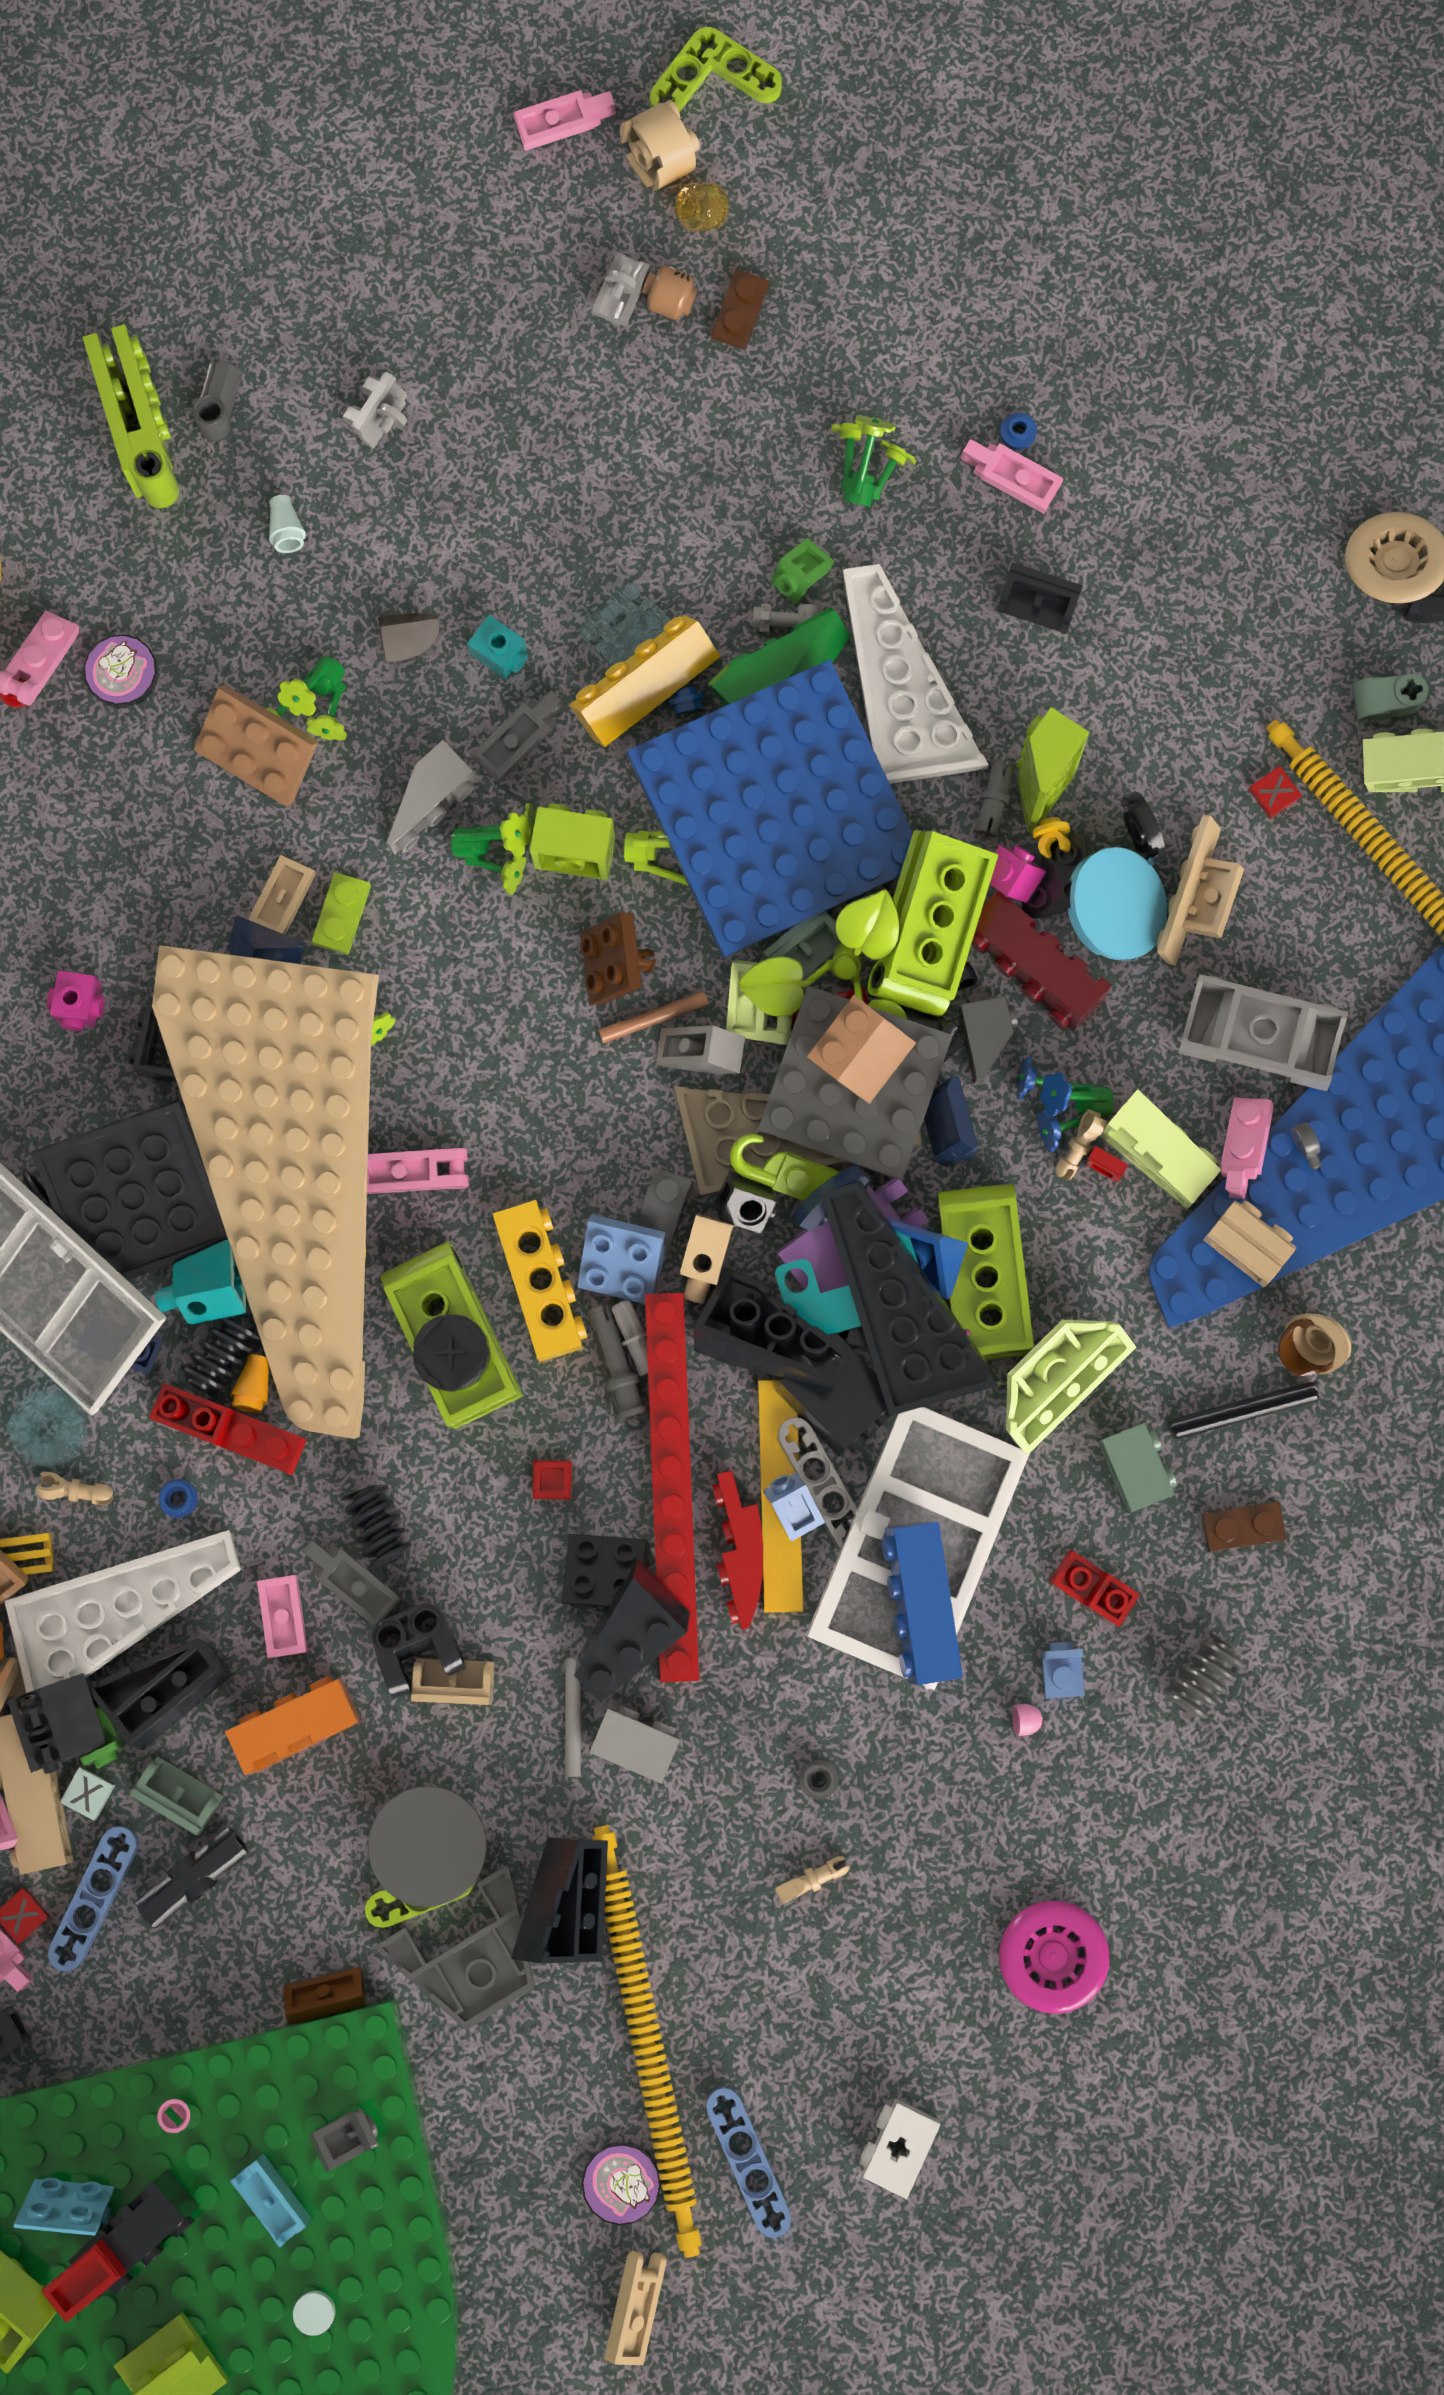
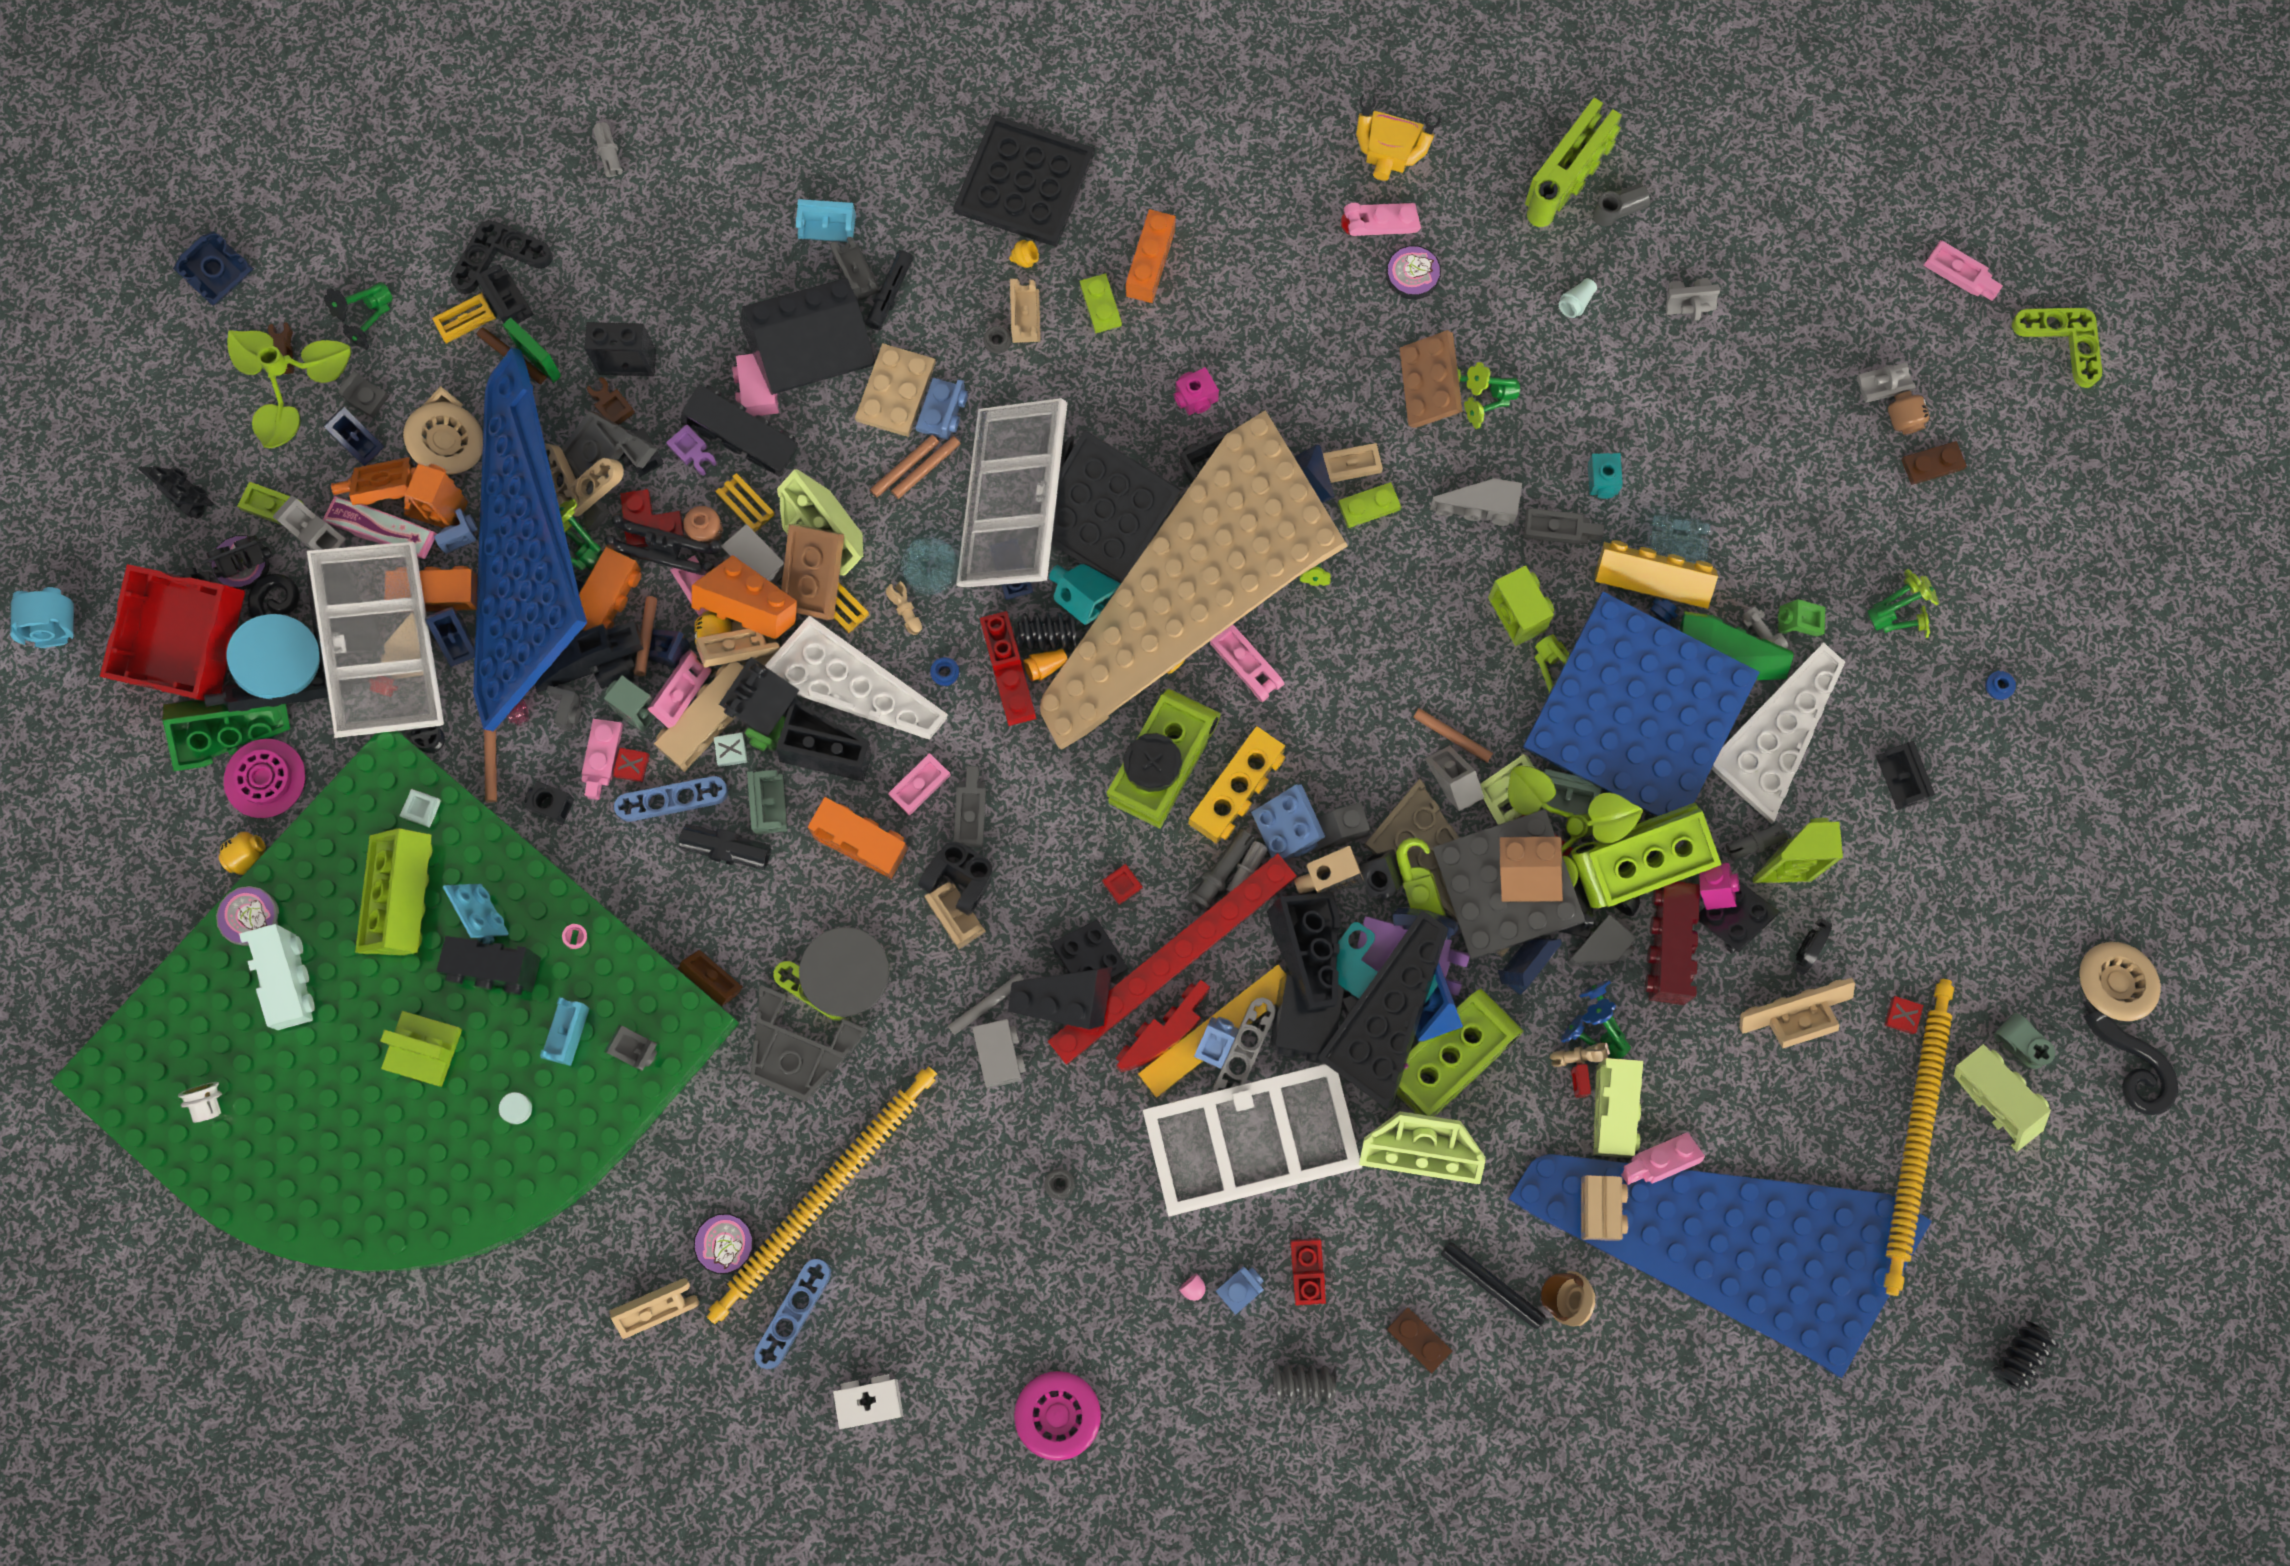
camera: 50 degrees right, 5 degrees down
(83, 2280) = (440, 953): red tile -> none
(376, 1526) = (1014, 798): black piece -> none
(407, 635) = (1569, 417): brick -> none
(515, 833) = (1497, 566): plant -> none
(566, 1904) = (869, 1081): black wedge -> none
(613, 959) = (1469, 683): reddish brown plate -> none
(659, 145) = (1994, 338): tan brick -> none
(702, 206) = (1978, 391): clear yellow head -> none
(811, 1880) = (995, 1225): tan piece -> none
(922, 1602) = (1217, 1166): blue brick -> none
(1013, 474) = (1970, 702): bright pink hinge -> none
(1052, 830) = (1763, 889): yellow plate -> none
(1117, 904) = (1751, 965): medium azure tile -> none
(1137, 1467) = (1404, 1242): sand green brick -> none
(1263, 1031) = (1744, 1118): light grey piece -> none
(1307, 1144) = (1694, 1199): dark grey piece -> none

